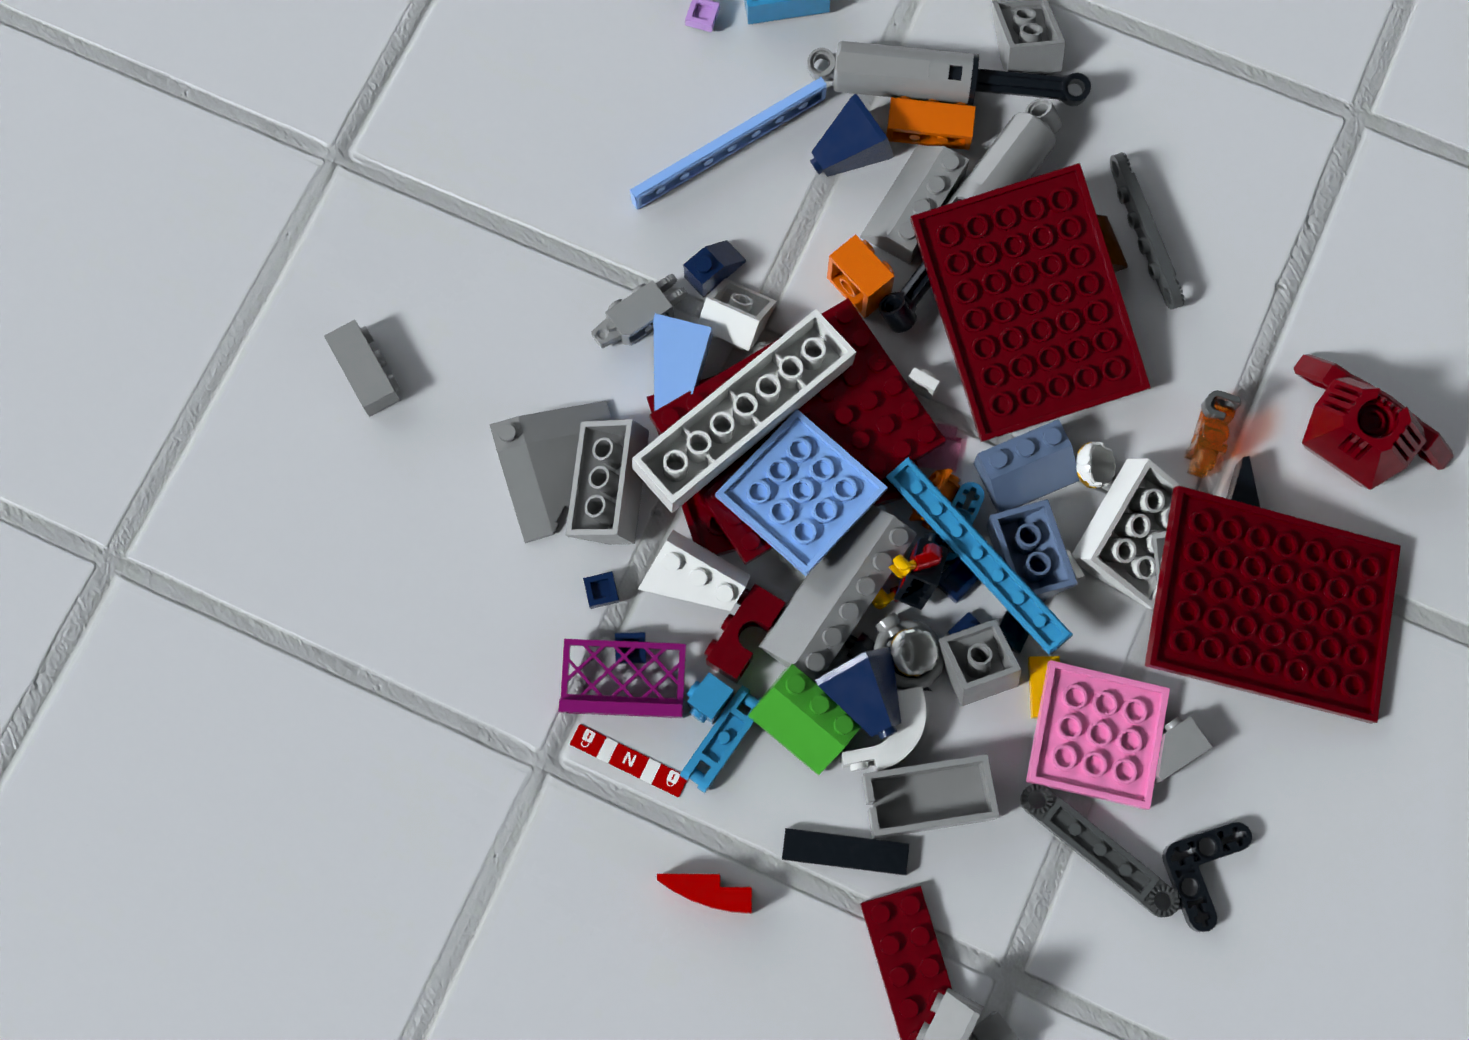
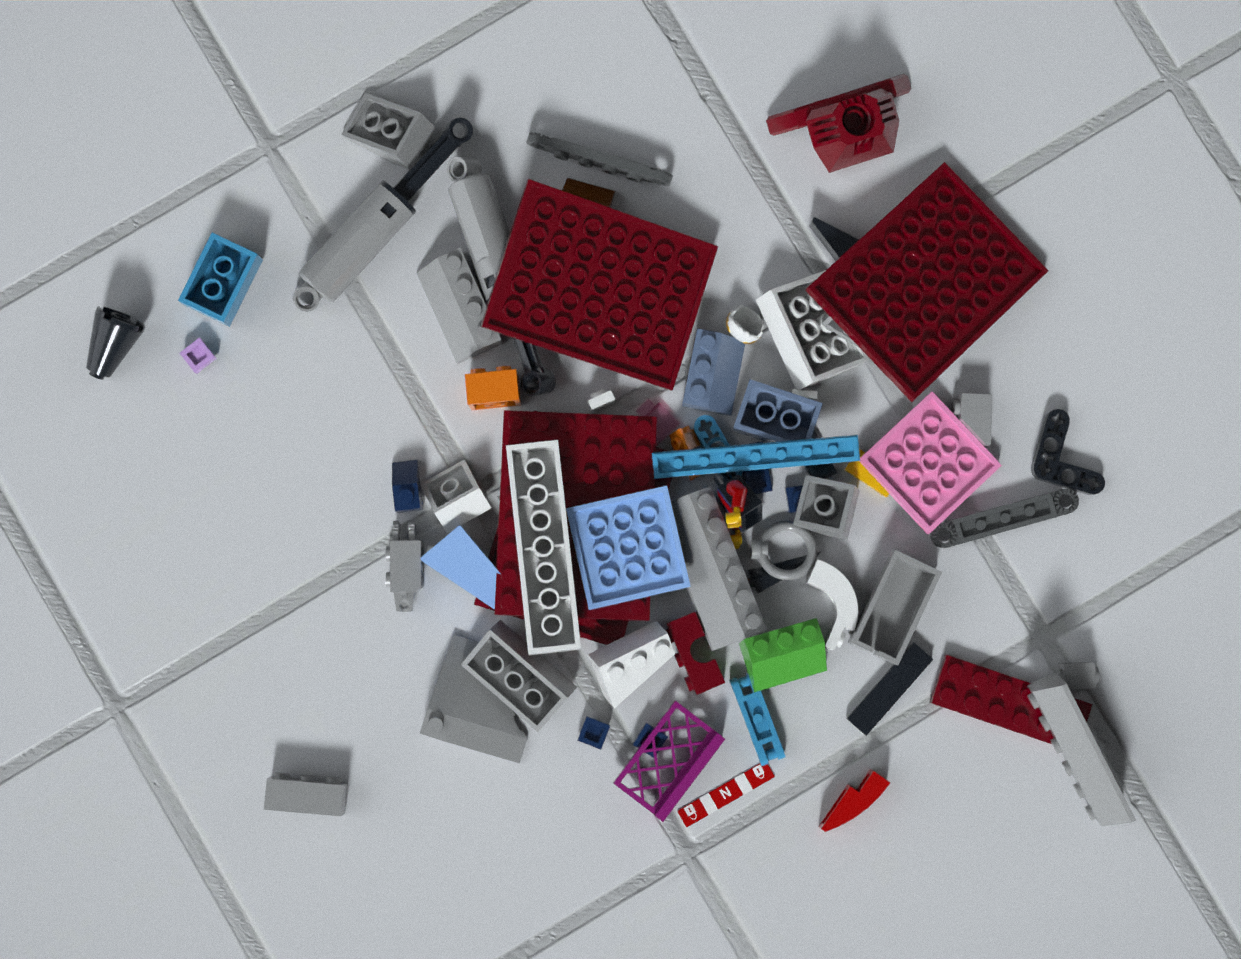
camera: 60 degrees left, 10 degrees up
(708, 698) = (723, 710): dark azure brick -> none
(728, 143) = (318, 409): light blue tile -> none
(851, 141) = (382, 320): dark blue slope -> none
(866, 691) = (797, 600): dark blue slope -> none
(914, 651) = (789, 546): white hair -> none
(930, 123) = (407, 251): orange brick -> none
(1211, 432) = (780, 232): clear orange hips -> none

